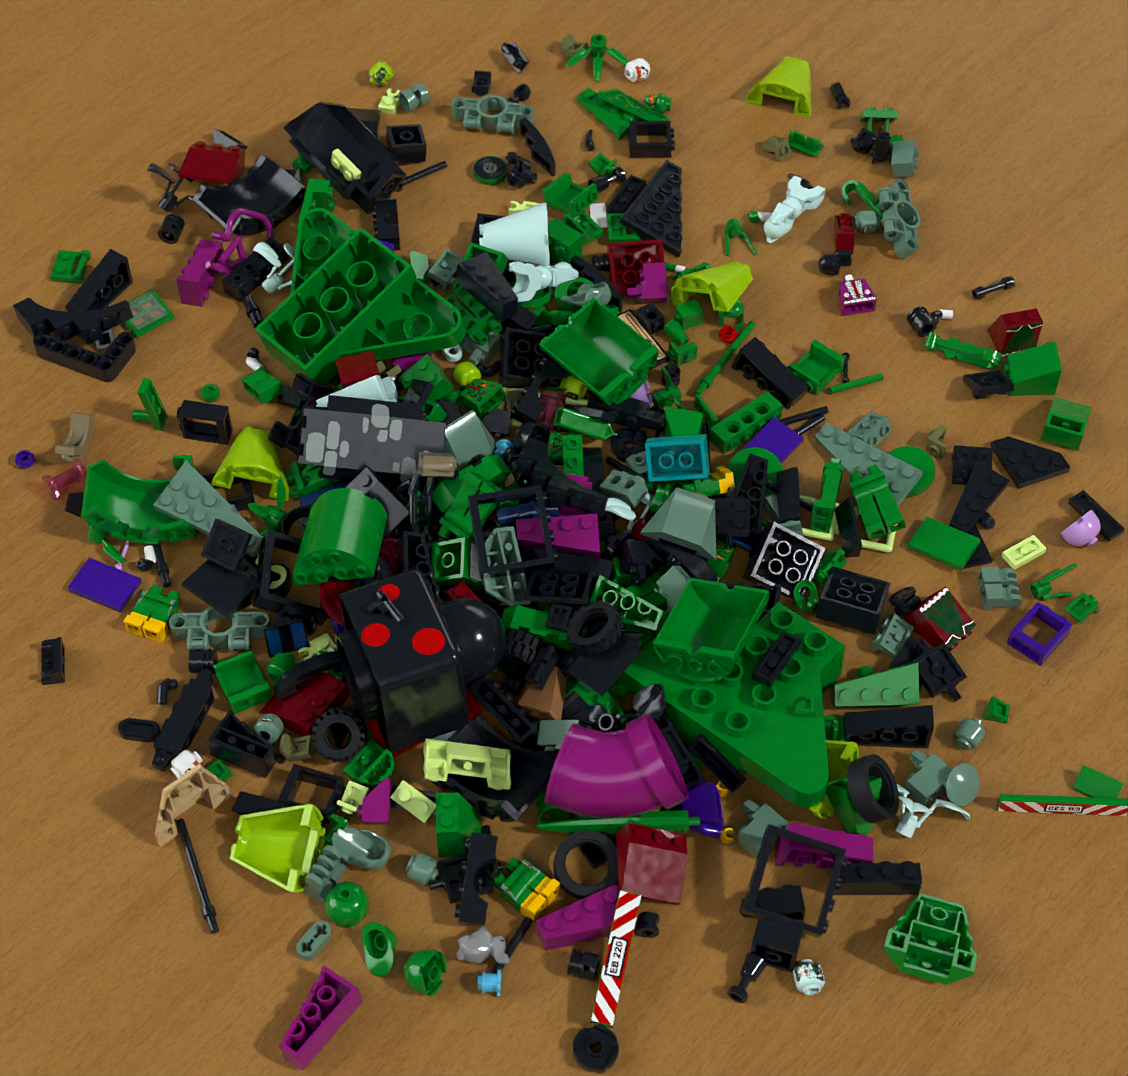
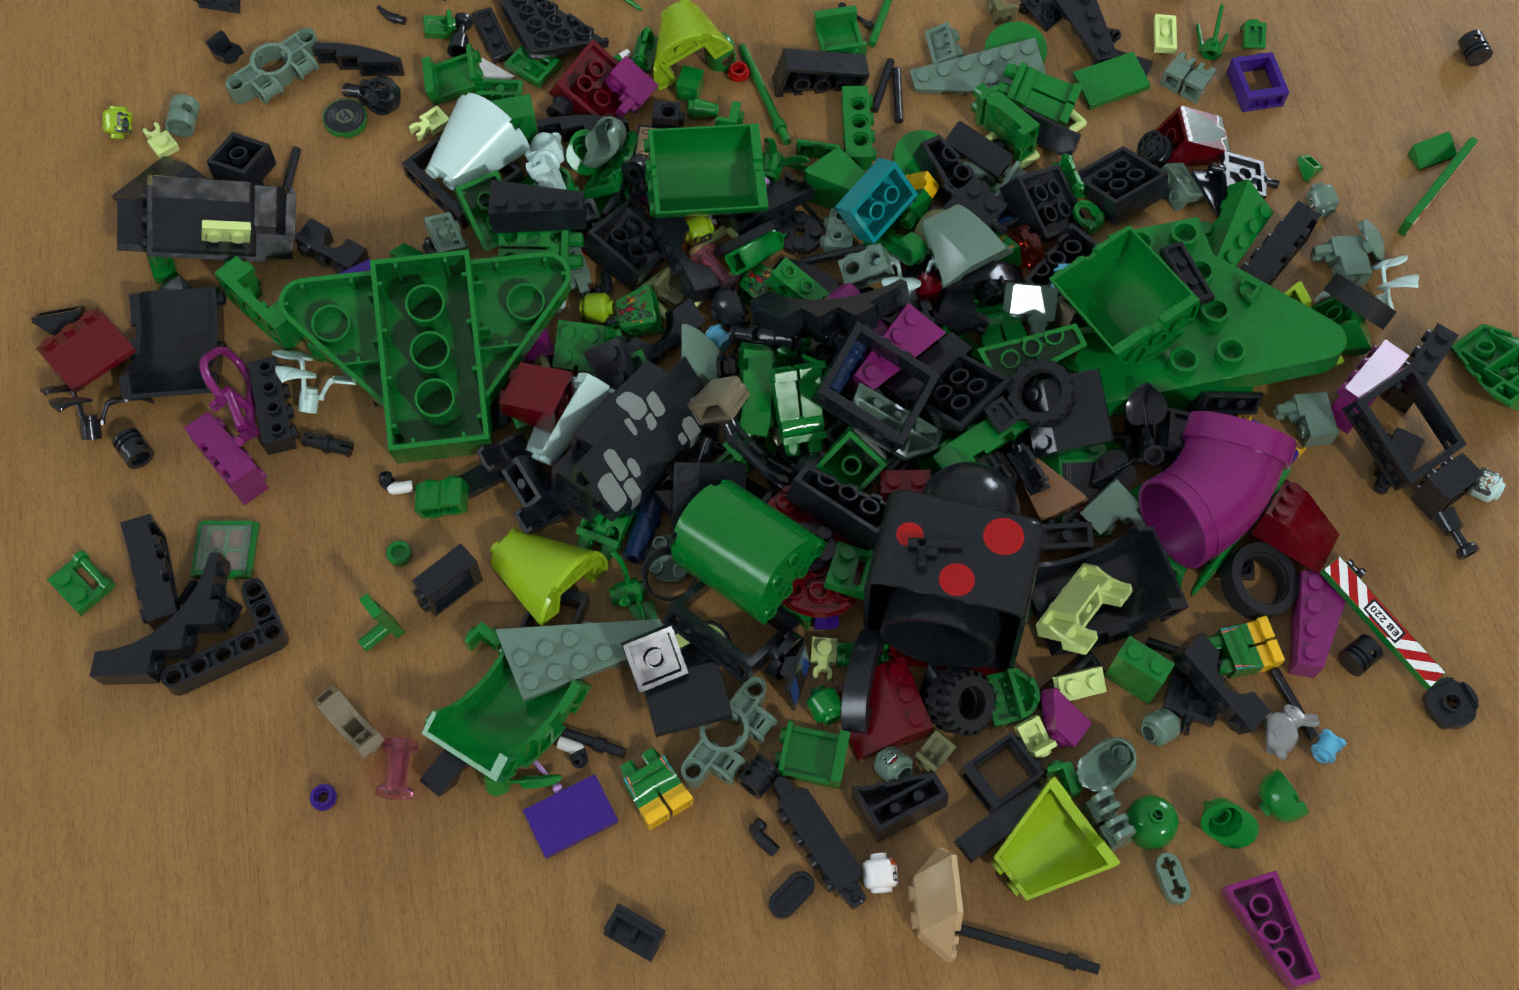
camera: 55 degrees left, 10 degrees up
(220, 770) = (904, 849): green tile -> none
(521, 93) = (273, 26): black plate -> none
(737, 570) = (1030, 246): none -> clear red plate
(777, 439) = (895, 120): dark purple tile -> none

